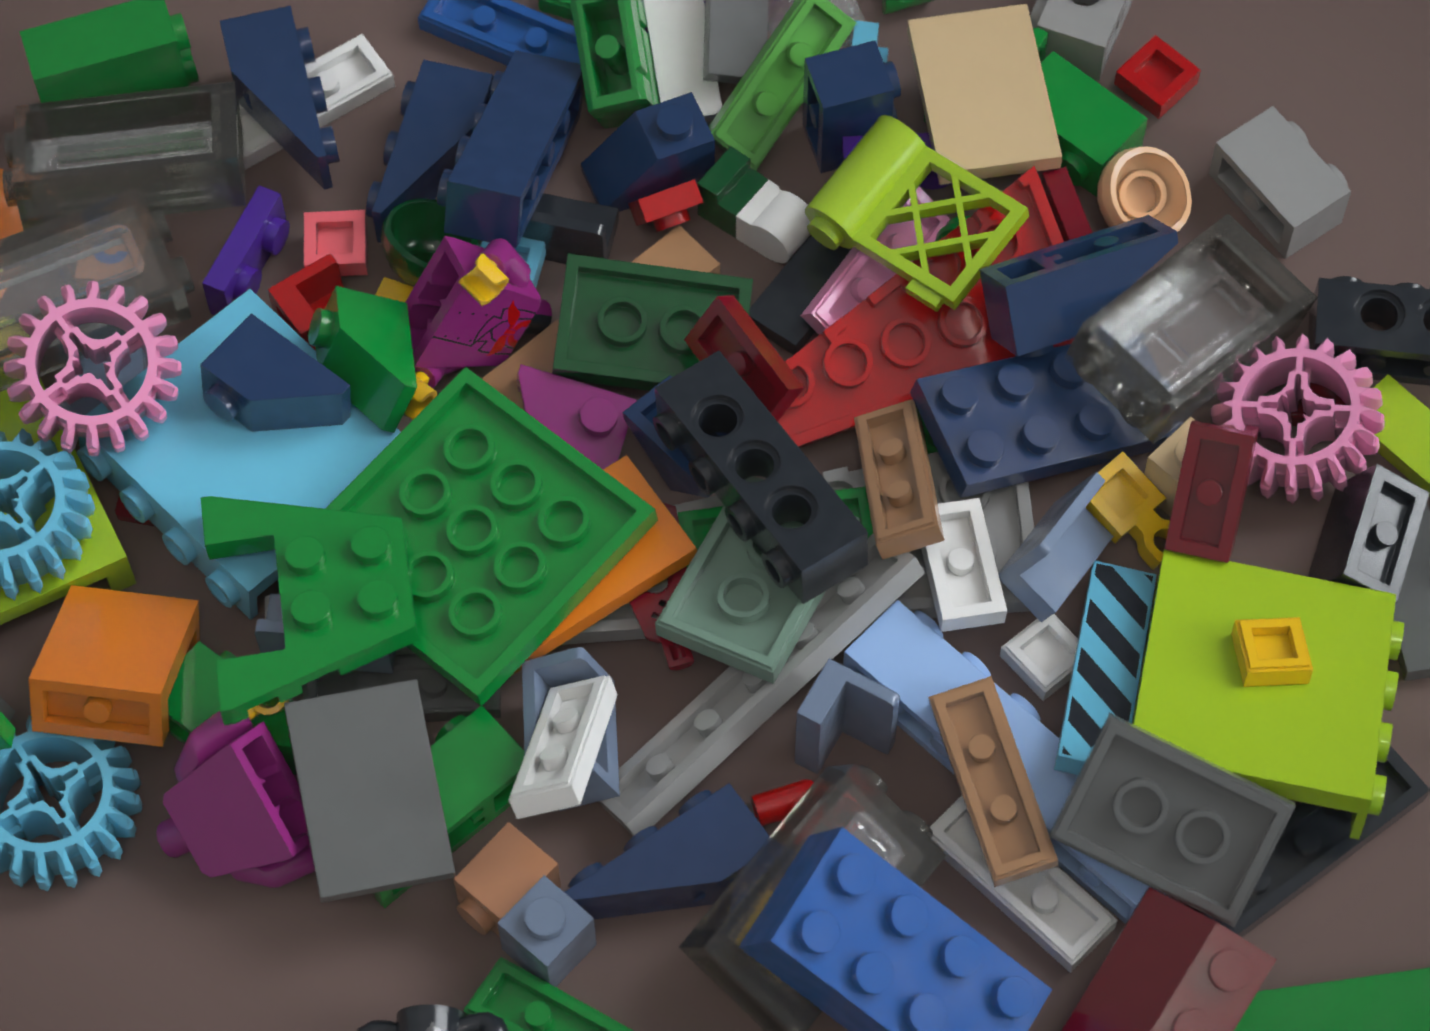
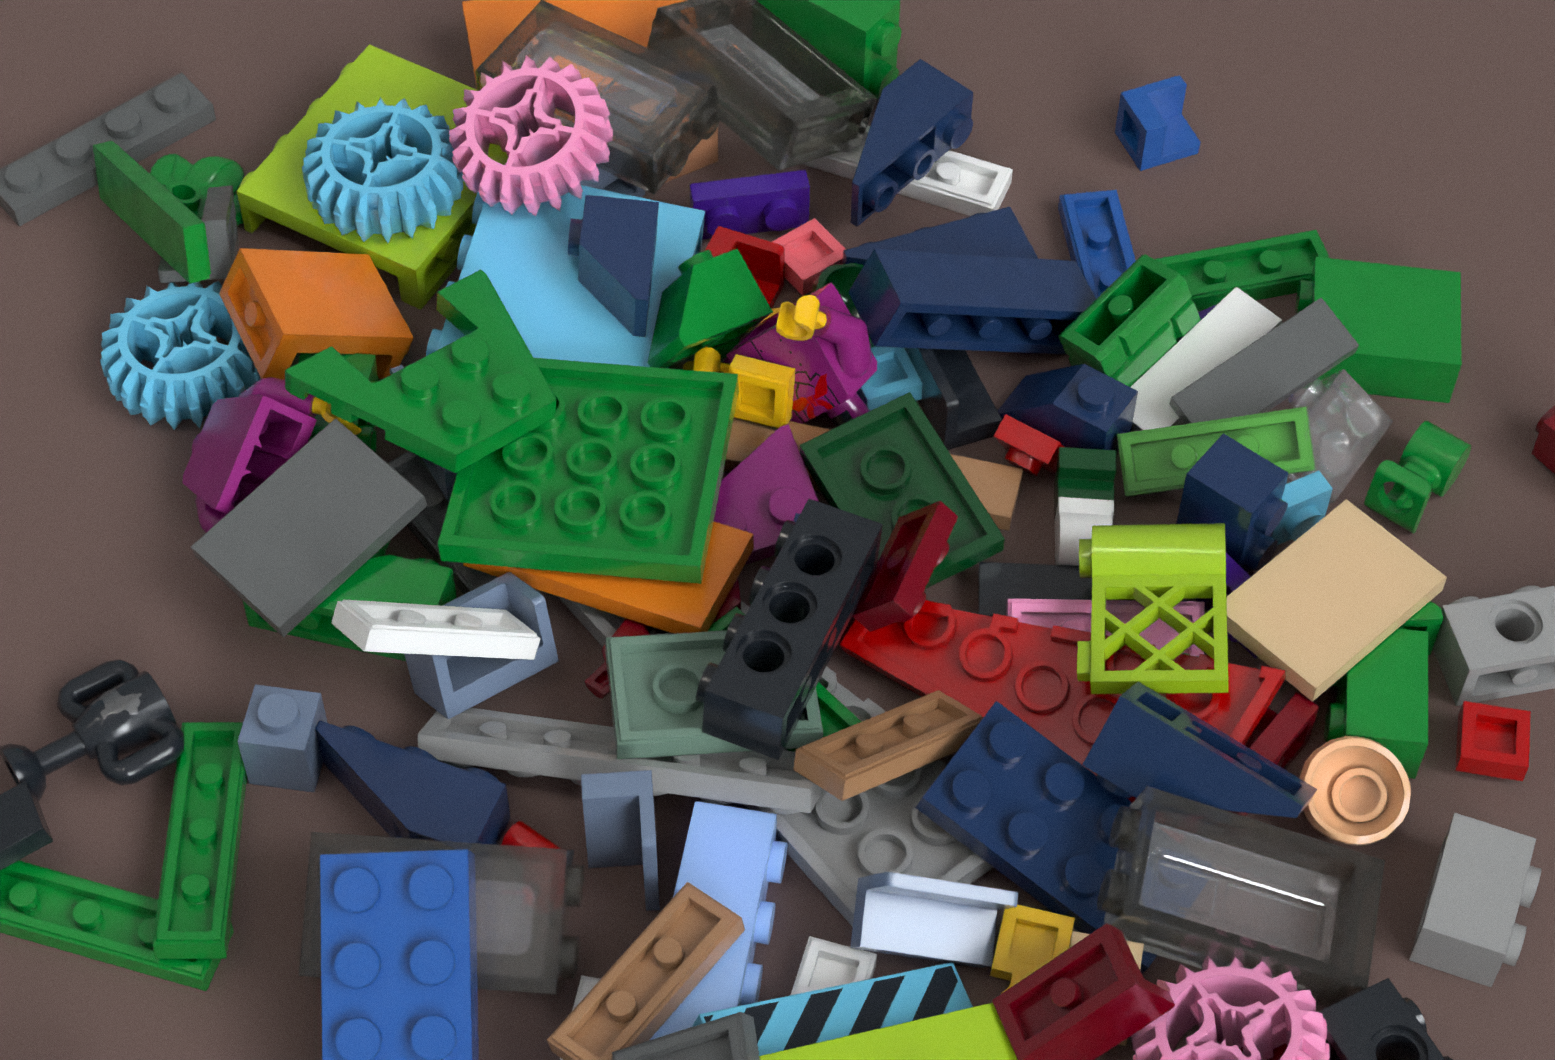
camera: 55 degrees right, 10 degrees down
(476, 351) = (764, 391): none -> yellow tile
(501, 878) = (320, 668): nougat brick -> none
(964, 570) = (846, 845): white plate -> none

